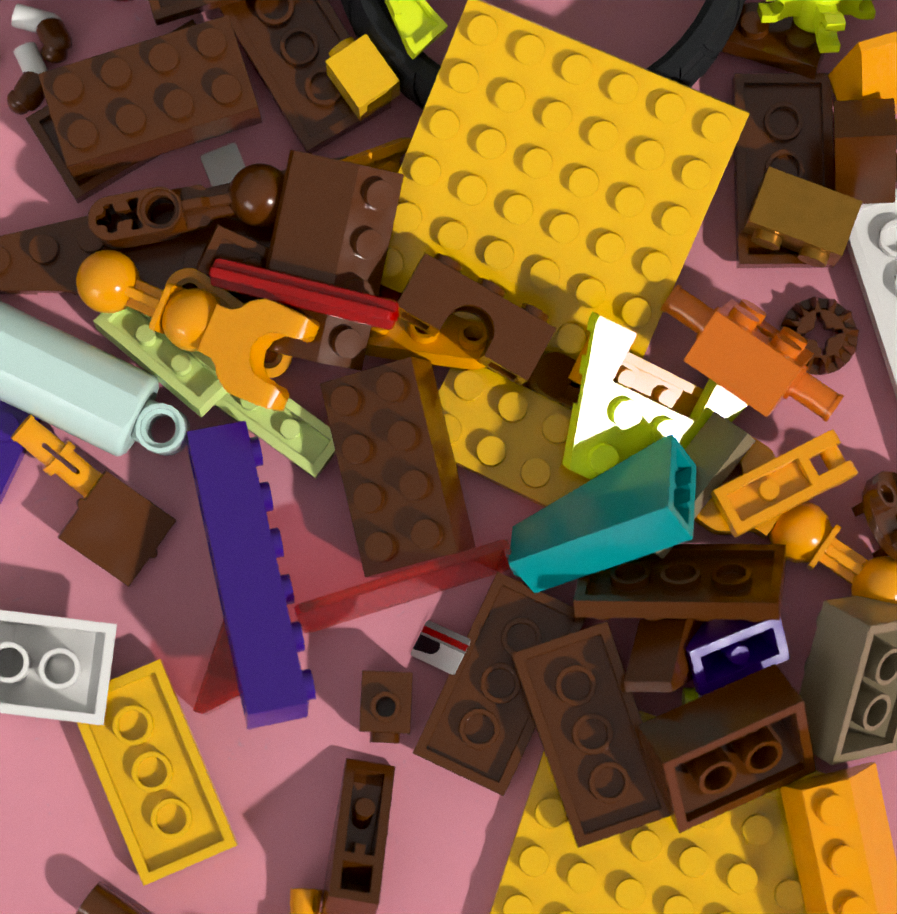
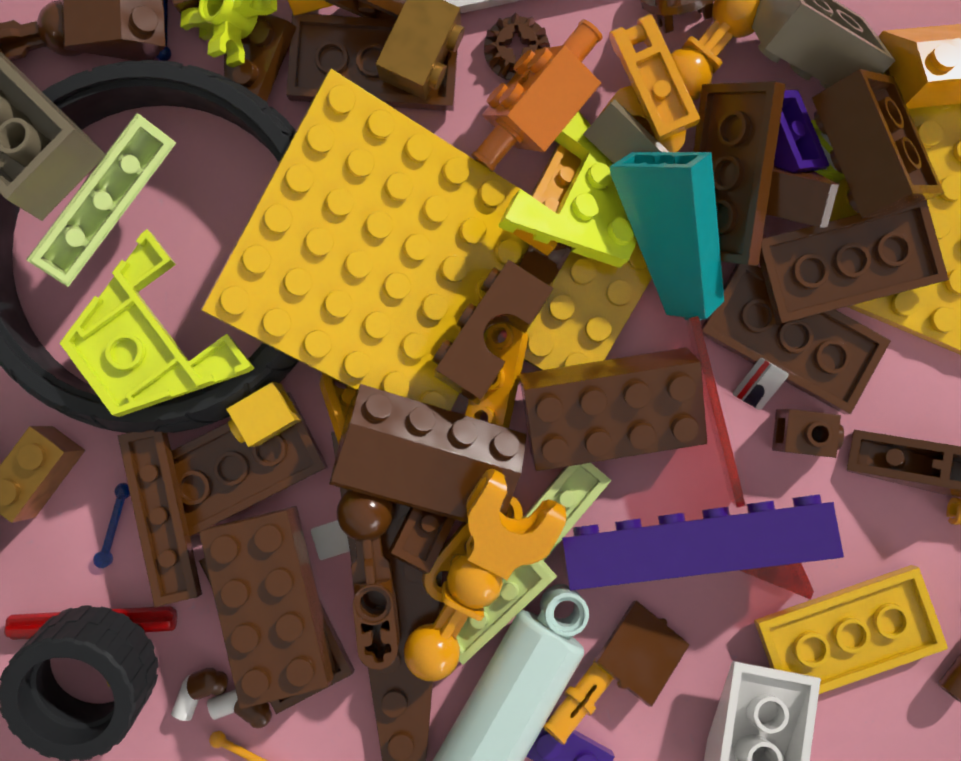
camera: 85 degrees left, 5 degrees up
(304, 293) = (463, 479): red axle -> none

